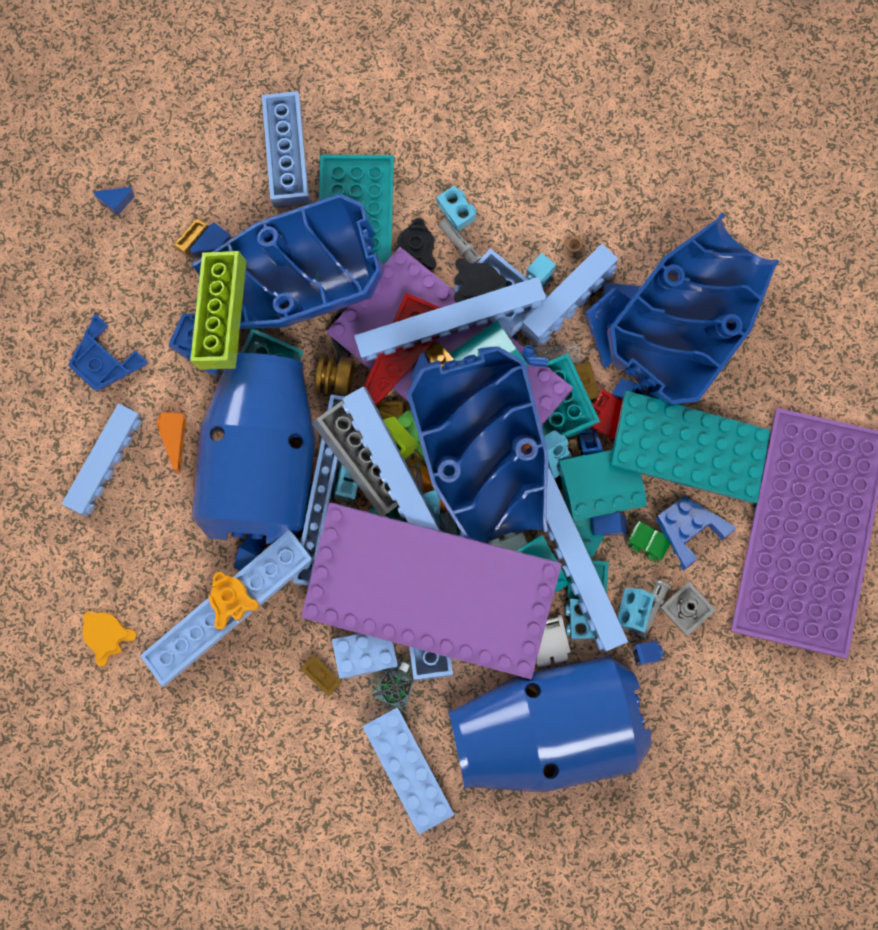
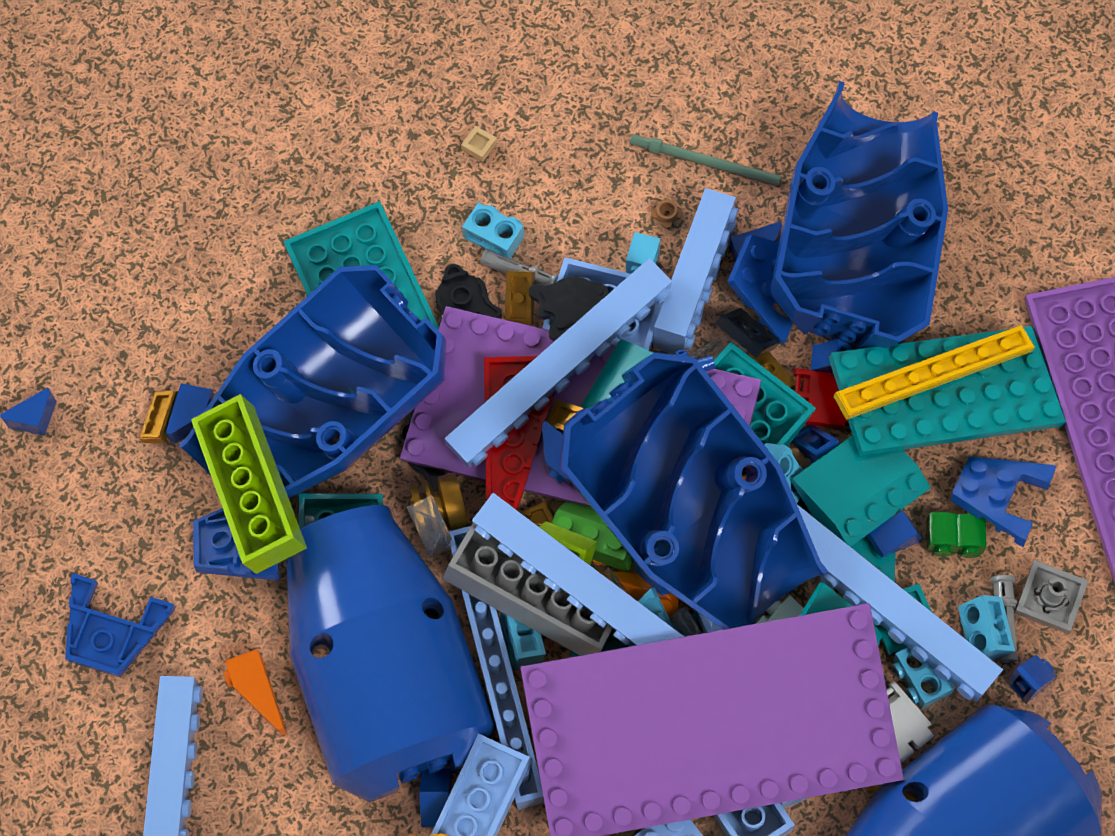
camera: 25 degrees left, 10 degrees down
(285, 149) = (235, 253): light blue brick -> none
(321, 387) = (431, 526): none -> clear slope
(446, 267) = (518, 304): none -> pearl gold plate
(476, 144) = (479, 143): none -> tan plate
(583, 351) = (748, 332): none -> black plate
(591, 198) = (657, 146): none -> sand green bar
(686, 433) = (933, 372): none -> yellow tile

